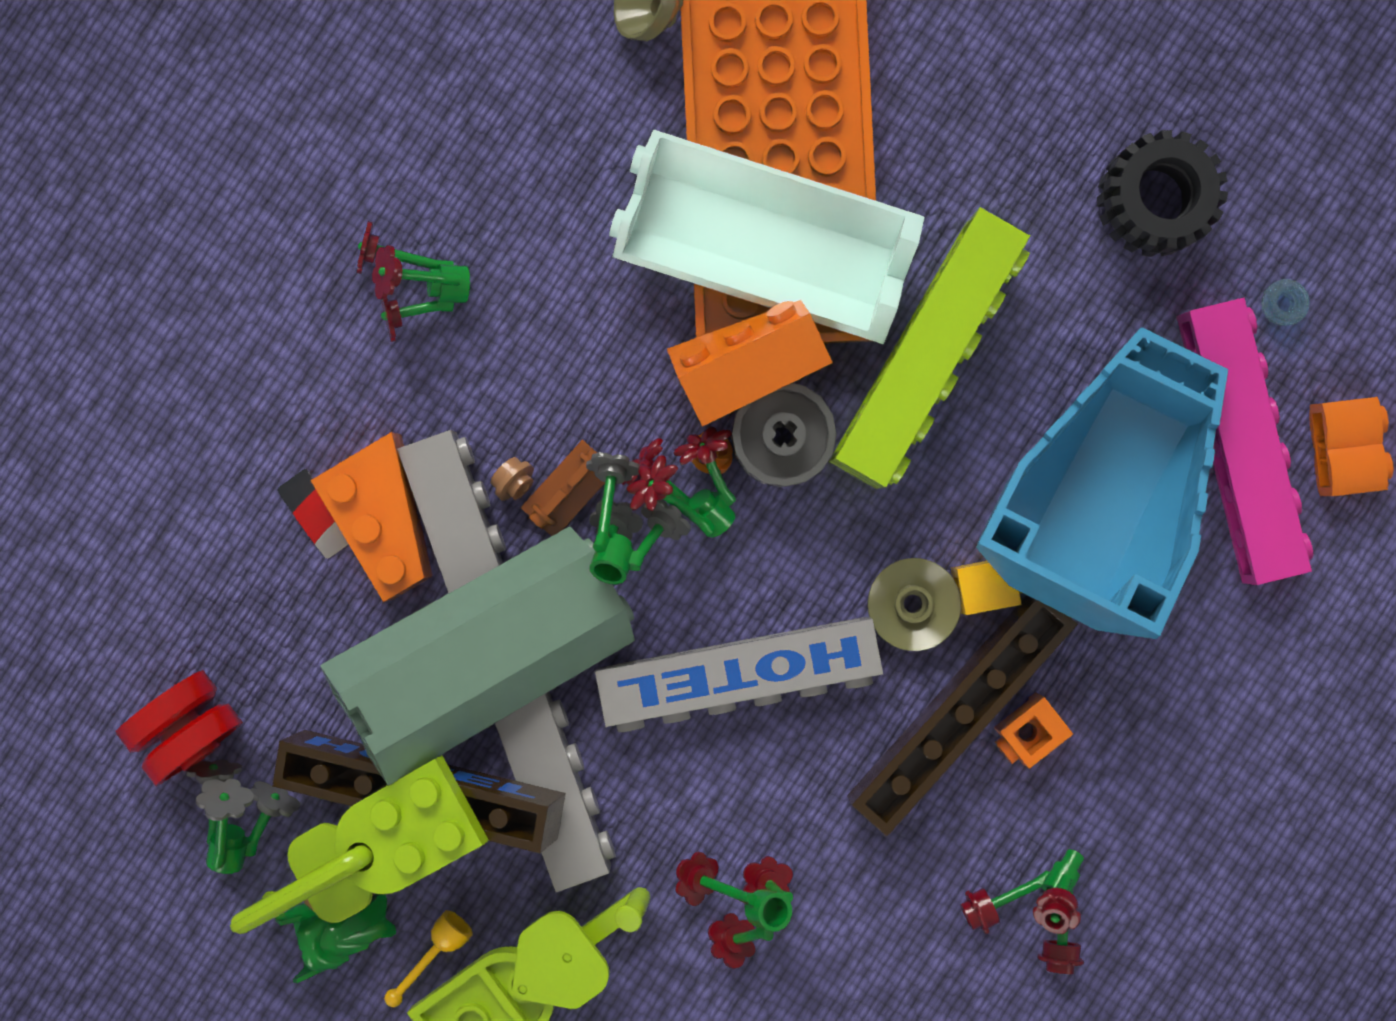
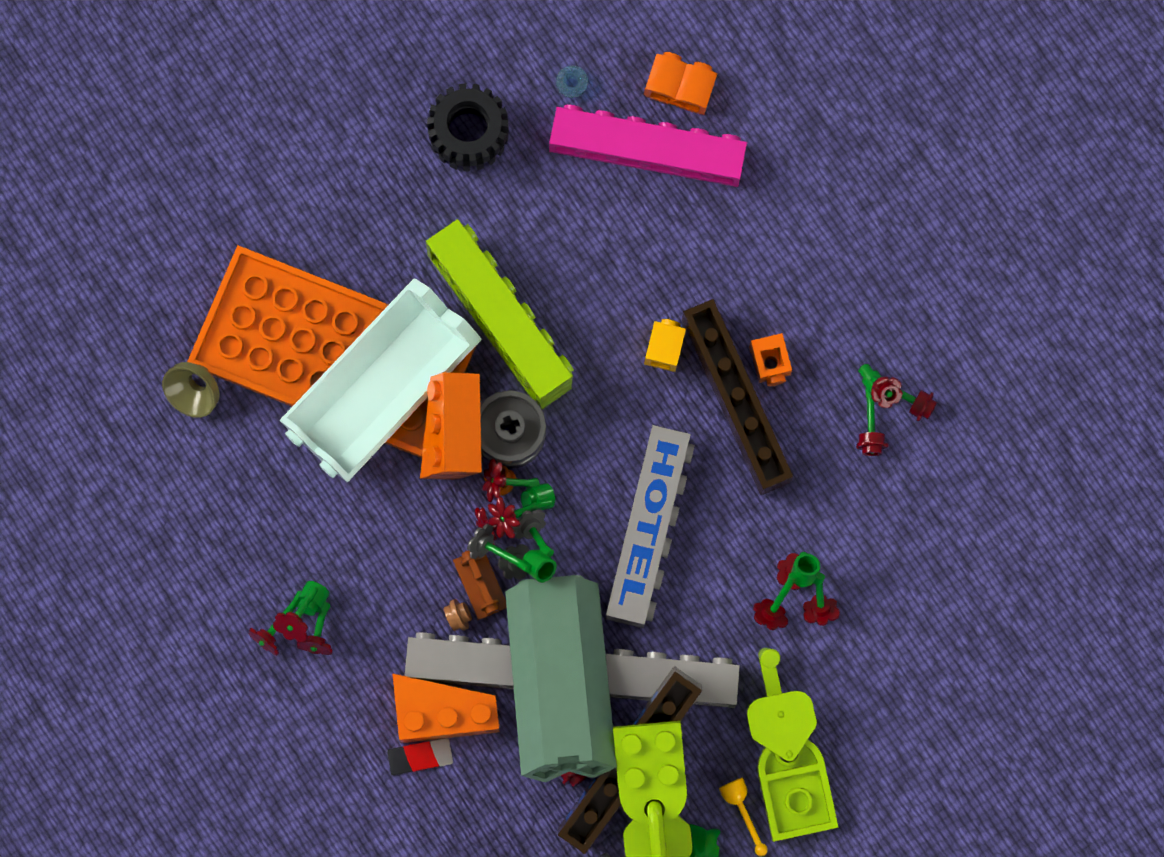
camera: 60 degrees left, 10 degrees down
(938, 608) = (660, 380): olive dish -> none
(1115, 492) = (639, 239): dark azure windscreen -> none

